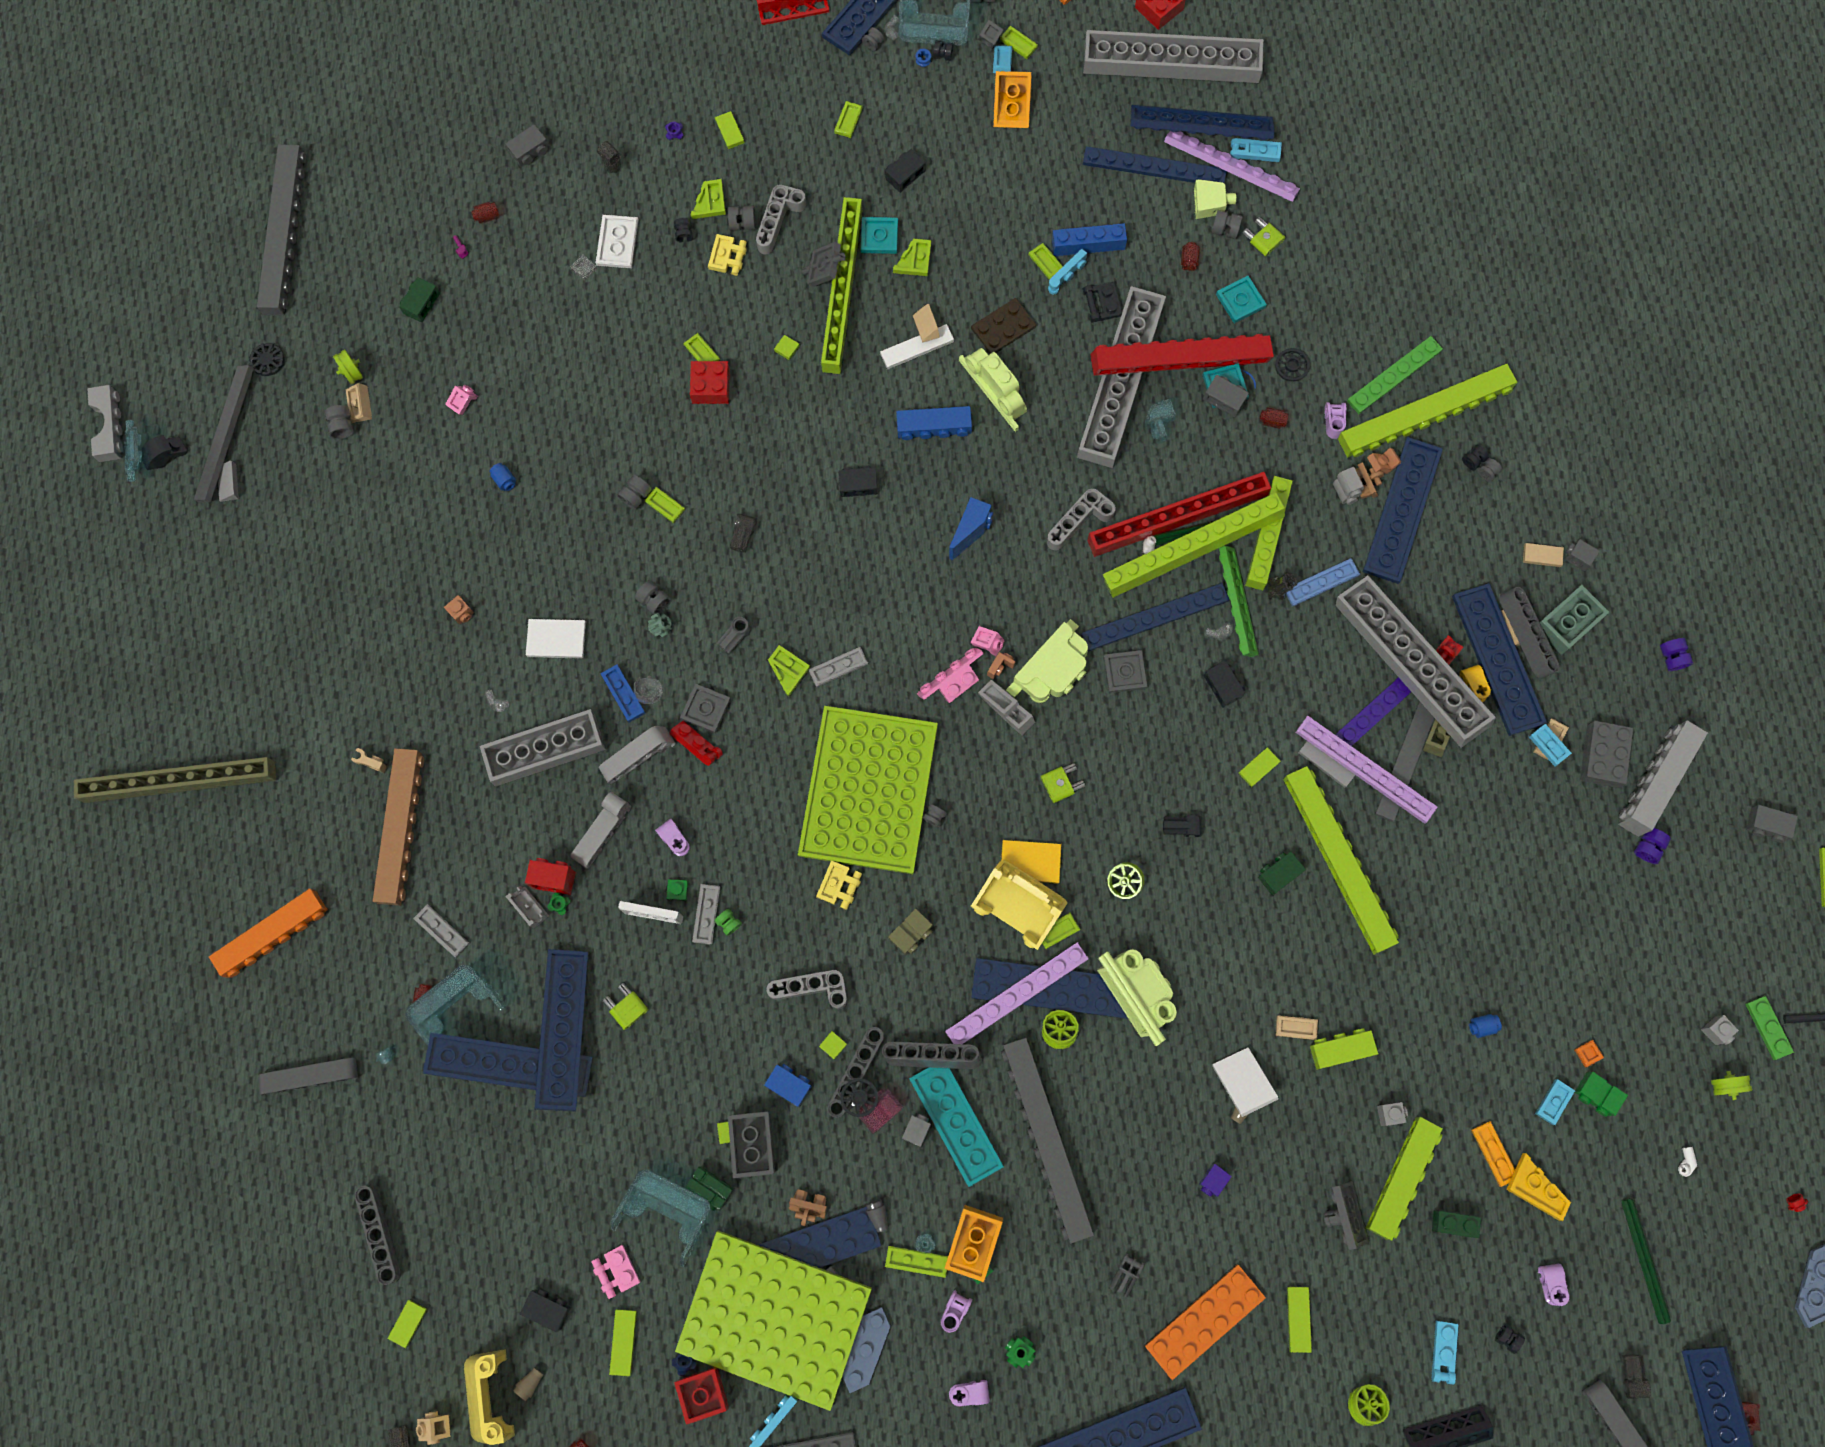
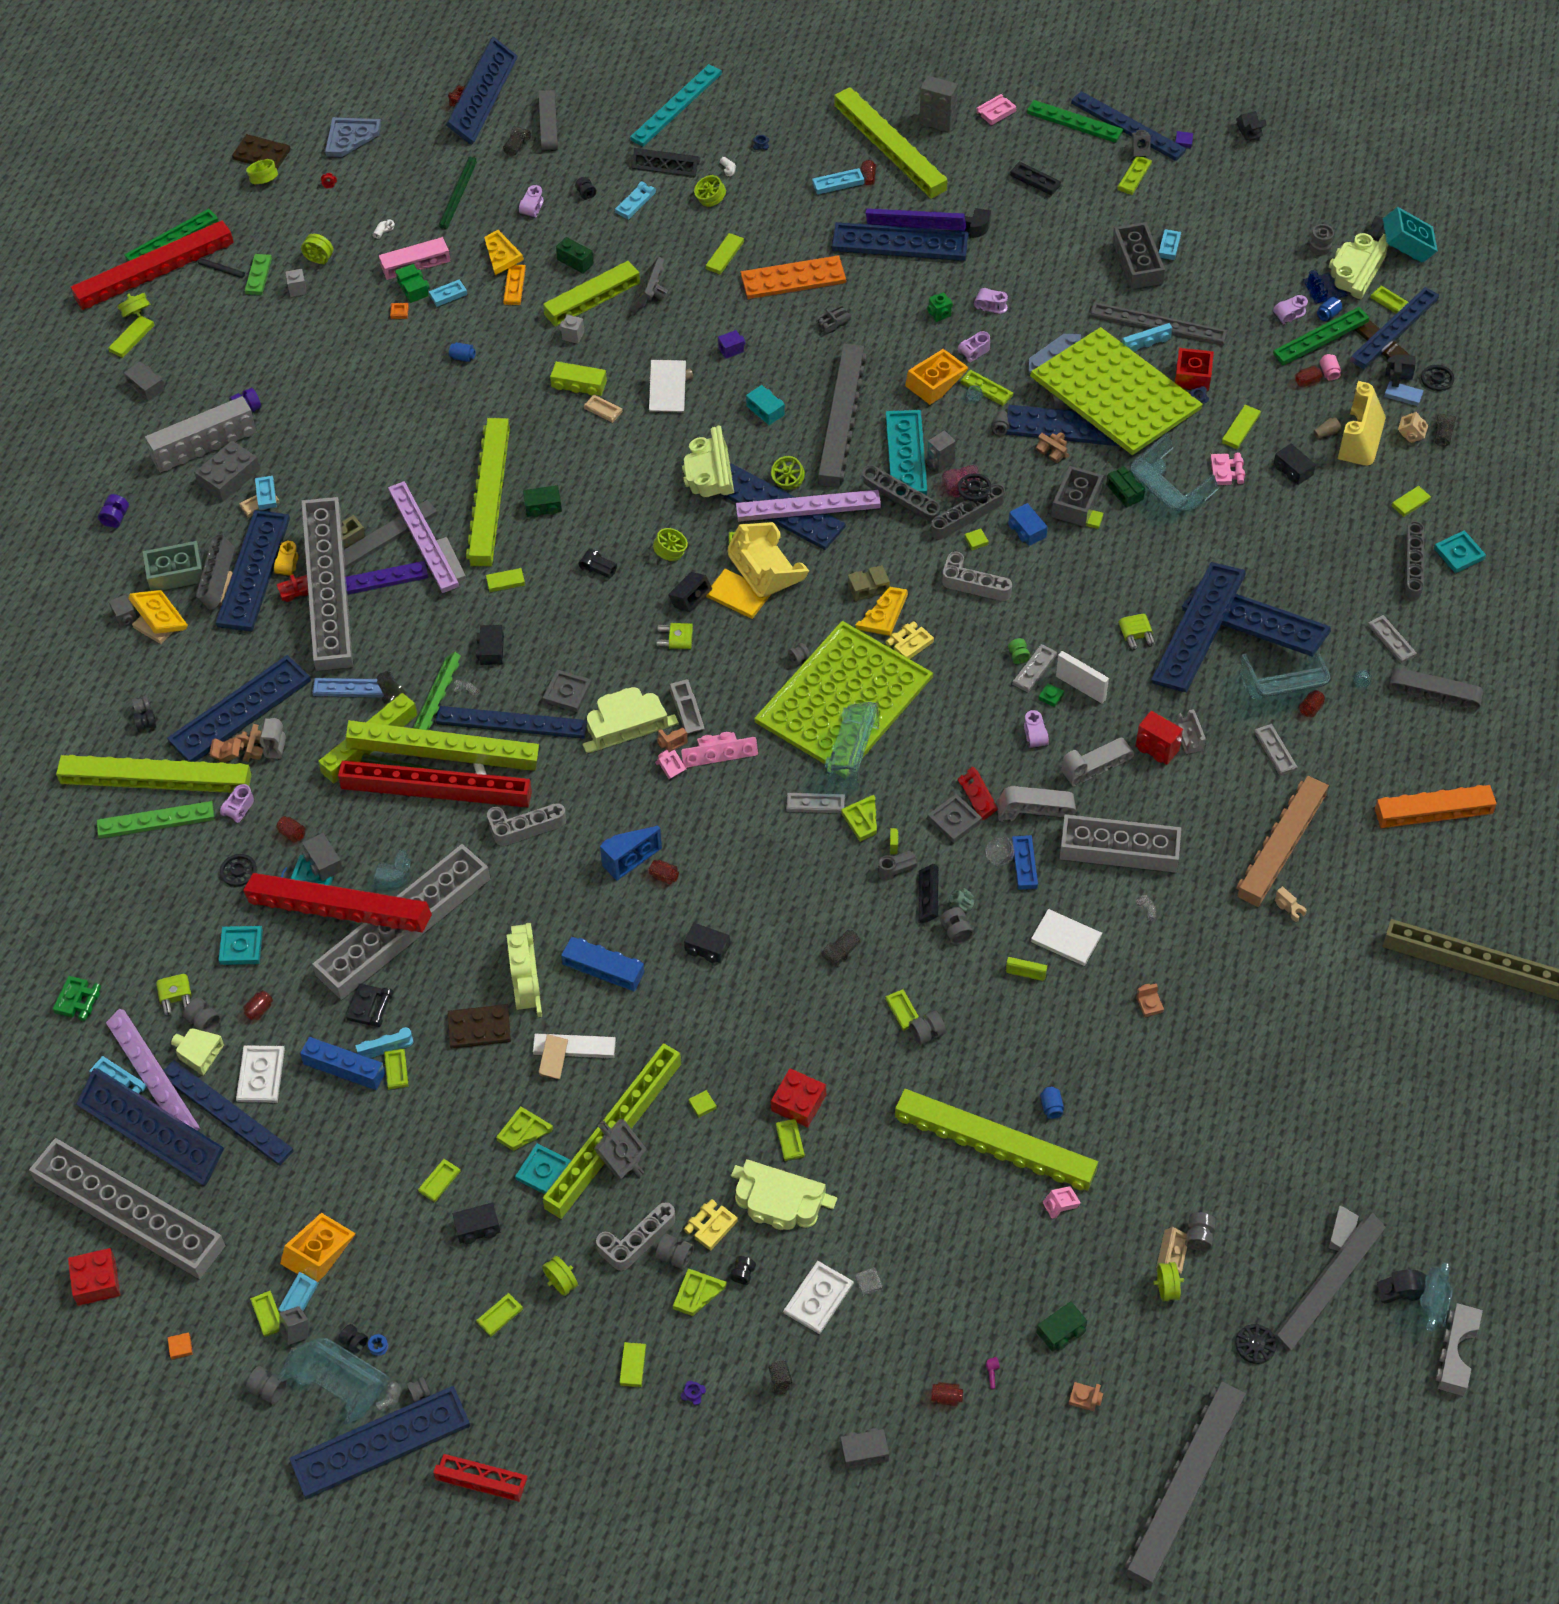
camera: 155 degrees left, 20 degrees down
(335, 1273) = (1459, 551): none -> teal plate
(371, 1123) = (1392, 639): none -> light grey tile
(380, 260) = (1085, 1396): none -> nougat bracket
(534, 423) = (996, 1140): none -> lime brick
(575, 587) = (1026, 968): none -> lime tile
(683, 296) = (779, 1196): none -> yellowish green brick
(692, 620) = (928, 893): none -> black plate
(747, 656) = (893, 841): none -> lime tile
(816, 156) = (560, 1275): none -> lime wheel
(826, 724) = (851, 744): none -> clear light blue windscreen
(878, 906) = (885, 612): none -> yellow wing
(932, 531) = (664, 871): none -> clear red brick
(956, 193) = (439, 1180): none -> lime tile
(1074, 833) = (690, 591): none -> black brick
(1132, 1112) = (765, 404): none -> teal brick
(1150, 208) = (260, 1074): none -> white tile
(1342, 193) = (71, 996): none -> green plate
(1549, 567) = (158, 611): none -> yellow tile
(1623, 1131) = (421, 255): none -> bright pink brick

